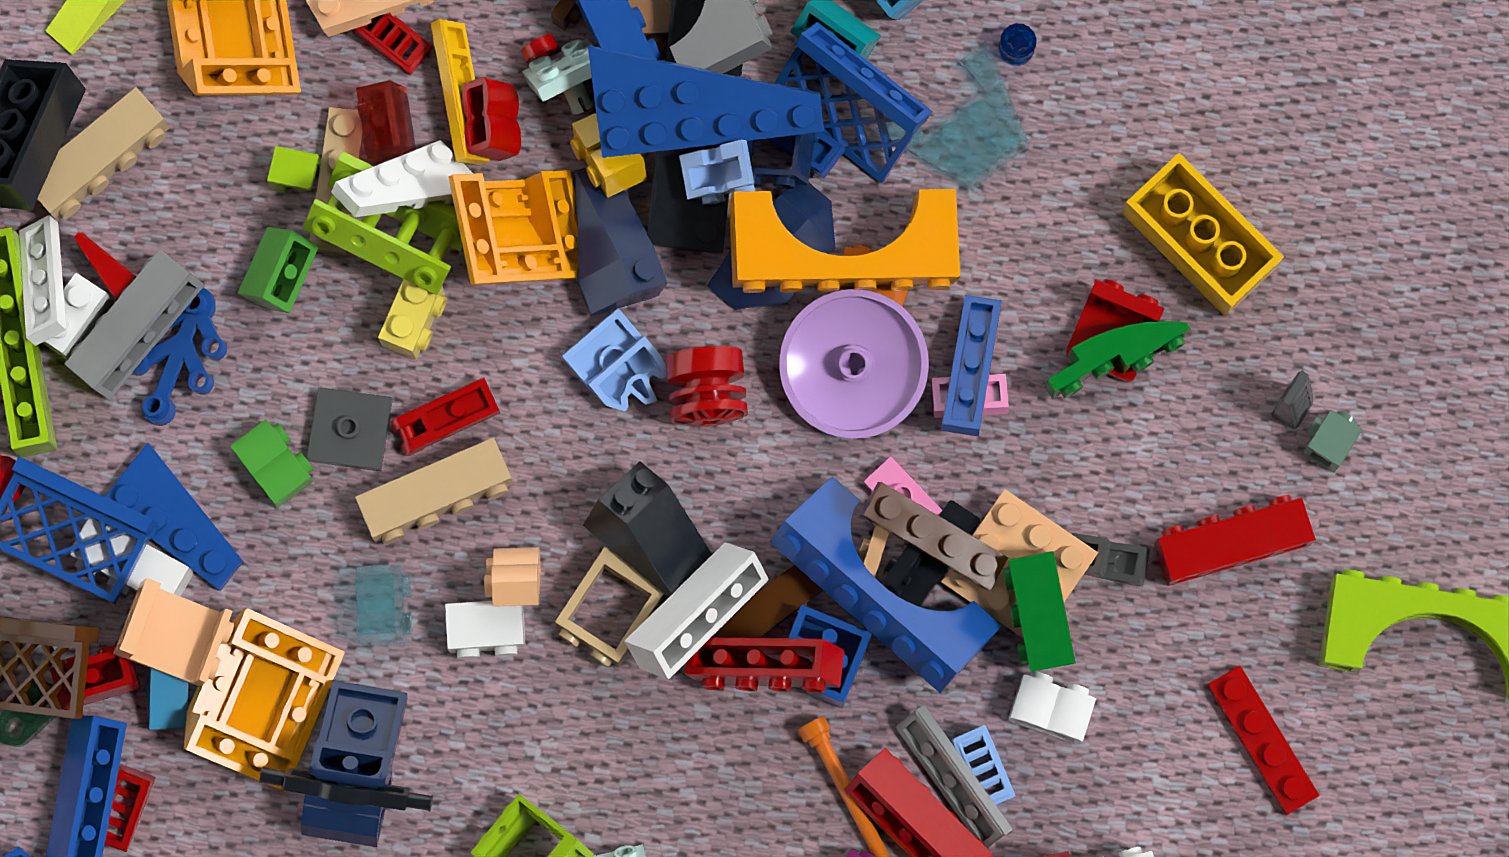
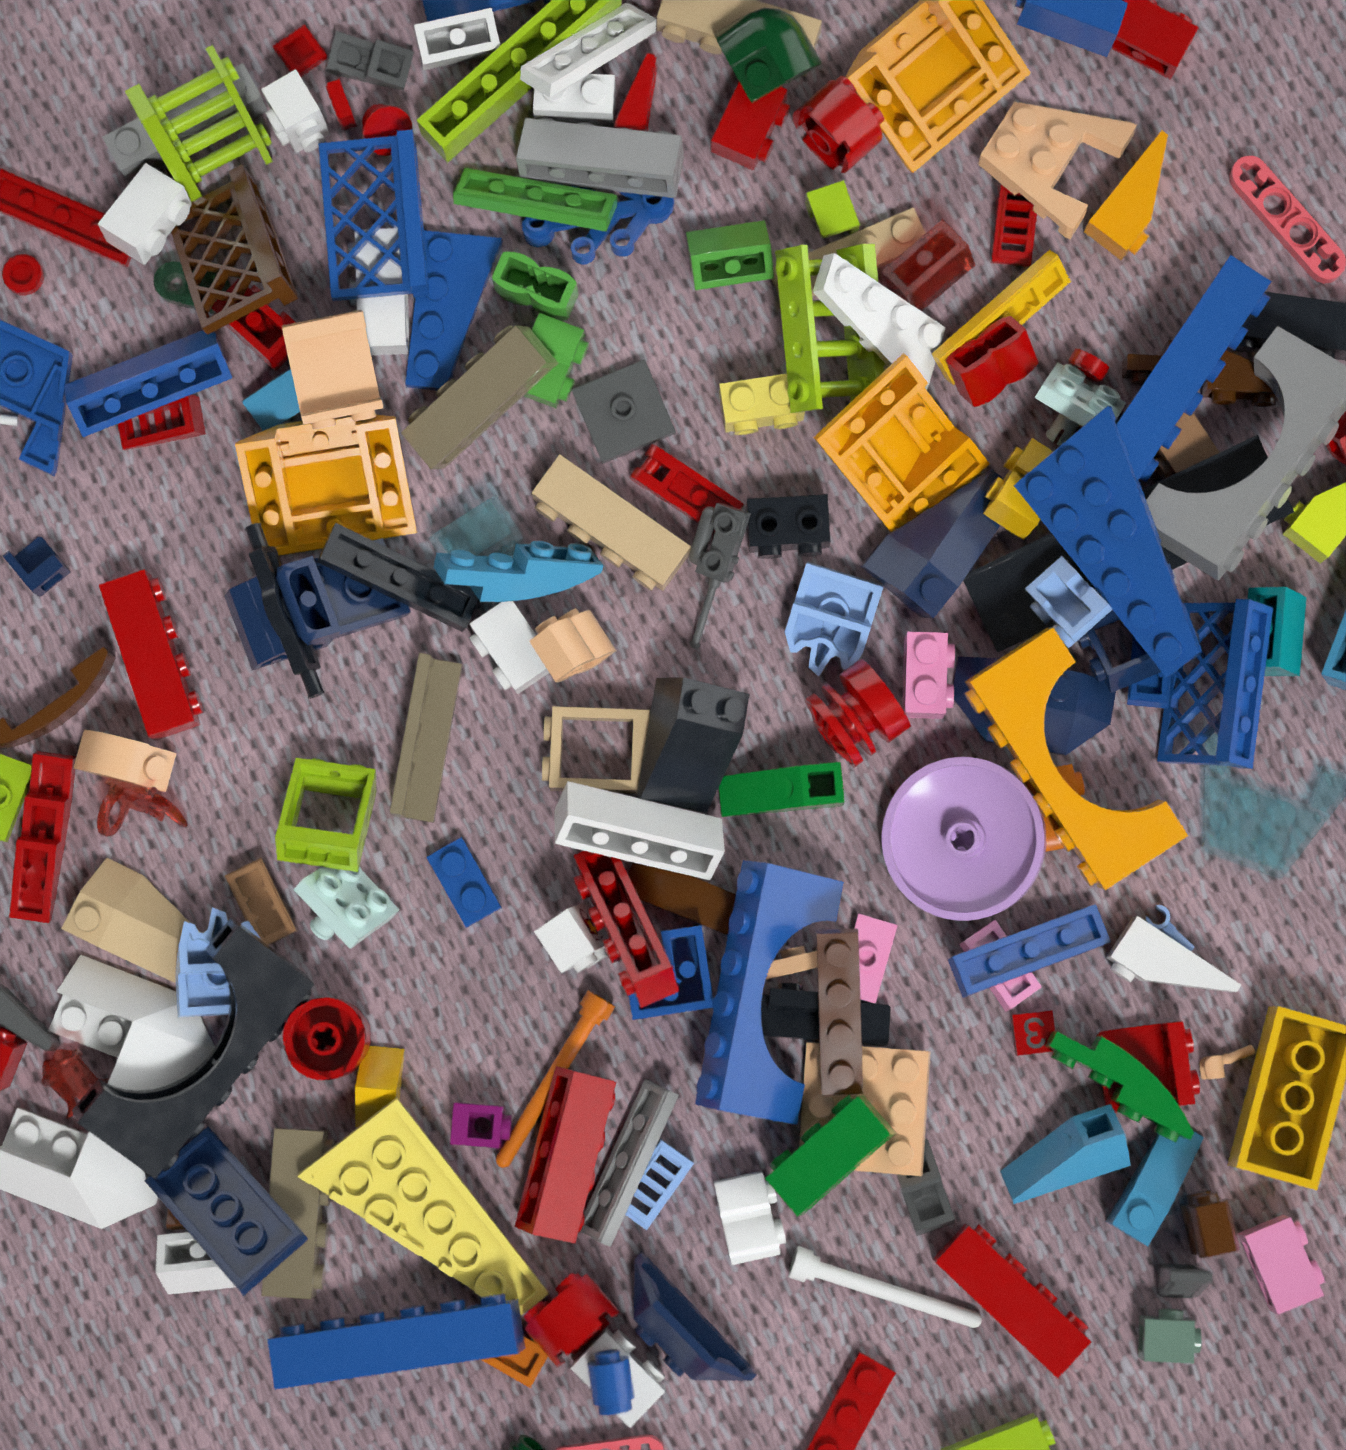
camera: 65 degrees right, 5 degrees up
(134, 142) = (767, 50): none -> dark green brick
(134, 396) = (535, 199): none -> bright green tile
(179, 191) = (747, 127): none -> red brick
(213, 431) = (525, 284): none -> bright green brick
(228, 123) = (839, 124): none -> red brick
(268, 533) = (479, 396): none -> dark tan brick
(374, 684) = (397, 577): none -> black plate
(435, 578) = (531, 573): none -> dark azure slope
(518, 421) = (719, 562): none -> dark grey piece
(518, 740) = (426, 739): none -> dark tan fence
(522, 353) = (788, 525): none -> black brick
(651, 779) = (464, 882): none -> blue plate
(707, 316) = (925, 675): none -> bright pink brick
(731, 481) = (782, 790): none -> green slope
(752, 712) = (573, 939): none -> white brick
(1016, 252) = (1169, 929): none -> light blue hand
(1034, 273) = (1157, 958): none -> white slope
(1035, 403) = (1032, 1032): none -> red tile
(1110, 812) = (681, 1330): none -> dark blue wedge
(1117, 684) = (808, 1266): none -> white piece
(1143, 281) = (1213, 1066): none -> light nougat hand
(1148, 428) = (1070, 1154): none -> dark azure slope
(1211, 382) = (1154, 1187): none -> dark azure slope
(1263, 354) = (1209, 1224): none -> reddish brown brick
(1324, 319) = (1282, 1263): none -> bright pink brick

